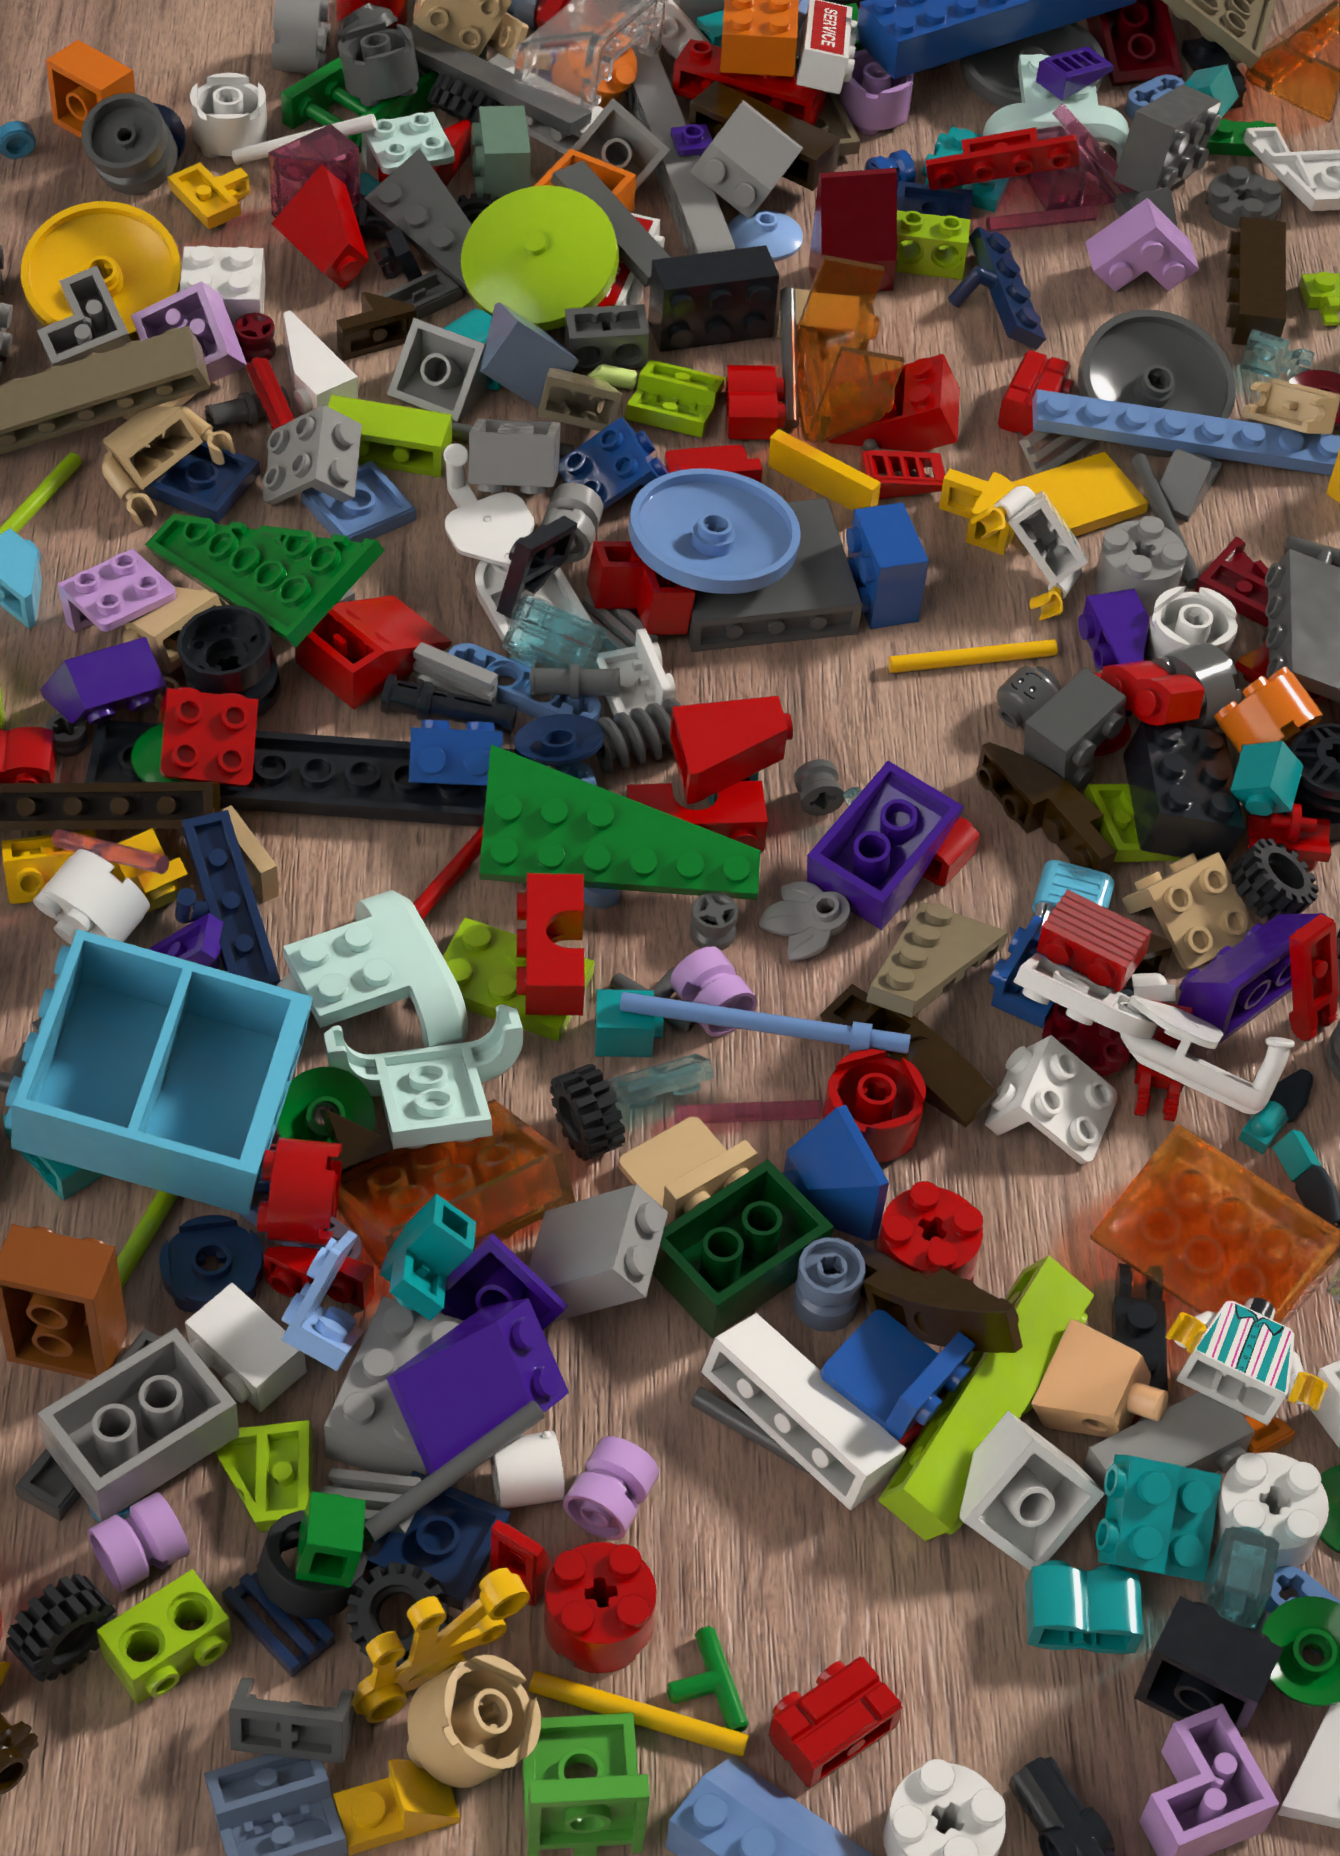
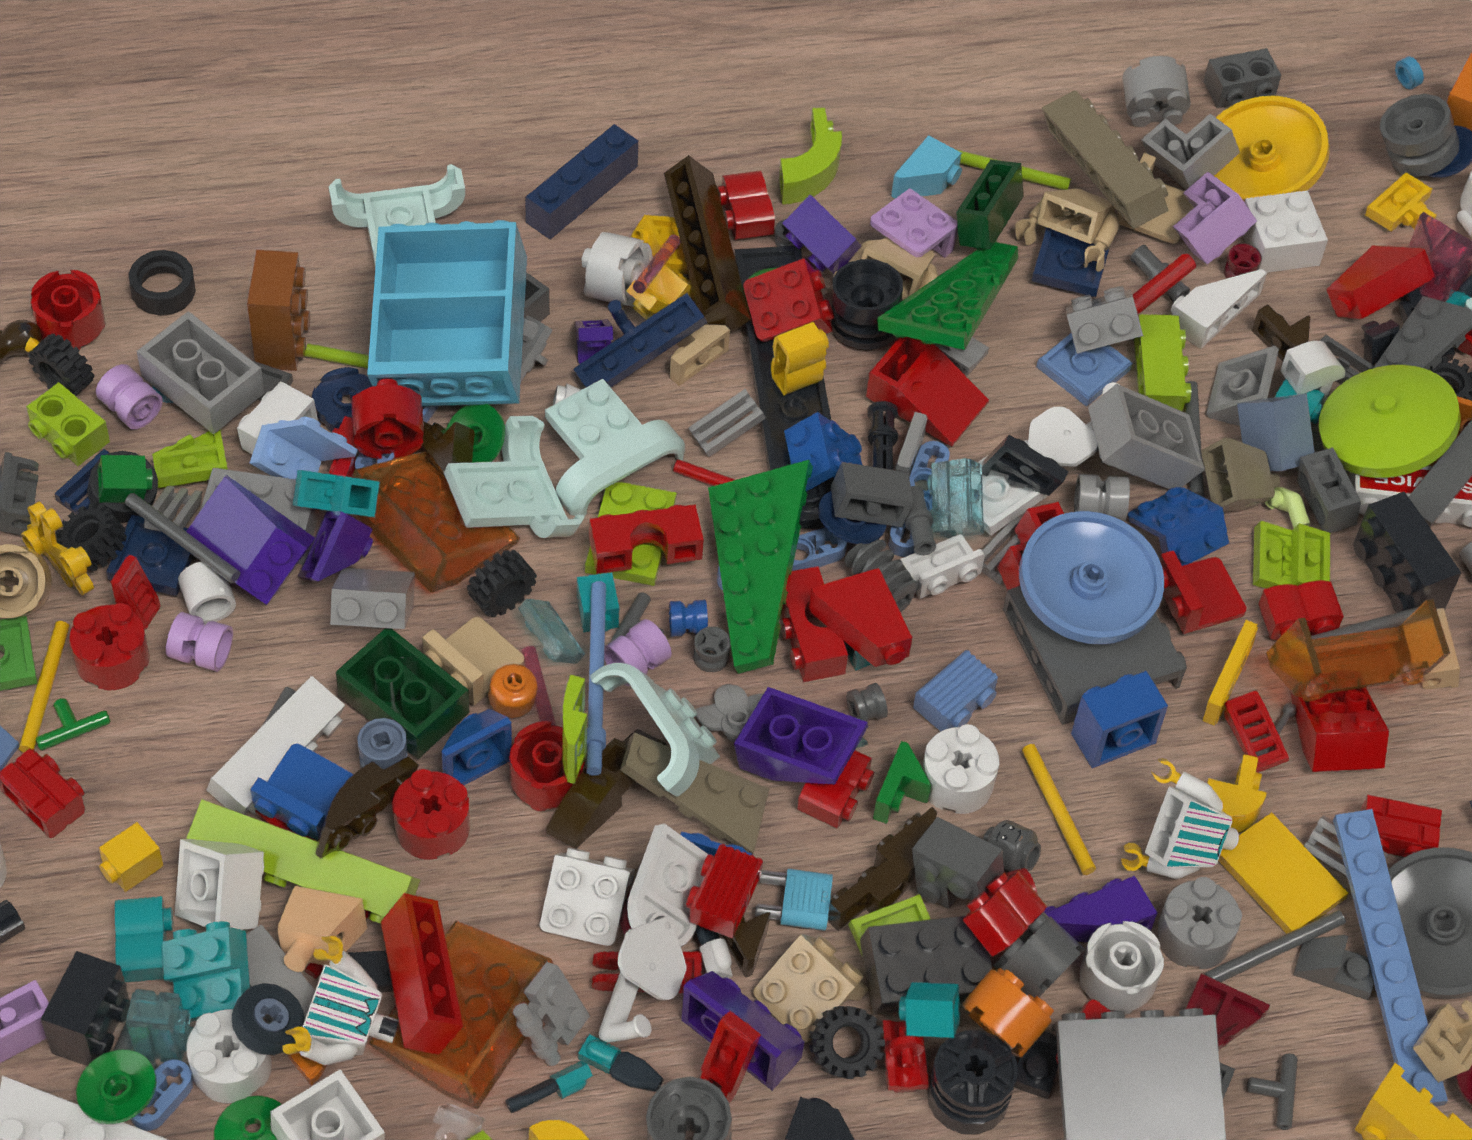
camera: 80 degrees right, 5 degrees up
(106, 516) = (990, 204): none -> dark green brick
(319, 731) = (799, 358): none -> yellow brick
(359, 810) = (724, 418): none -> light grey tile
(448, 300) = (1311, 368): none -> white brick
(539, 707) = (871, 494): none -> dark grey brick
(665, 927) = (692, 617): none -> blue wheel
(759, 1121) = (513, 690): none -> orange head
(817, 705) = (956, 692): none -> medium blue brick
(859, 947) = (673, 717): none -> light aqua piece
(879, 1034) = (574, 727): none -> lime slope
(924, 719) = (960, 769): none -> white brick
(931, 766) = (902, 780): none -> green slope
(961, 1606) = (130, 857): none -> yellow brick
(1196, 1259) = (421, 974): none -> red brick
(1226, 1138) = (559, 1008): none -> light grey plate
(1252, 1437) = (252, 1008): none -> black bush

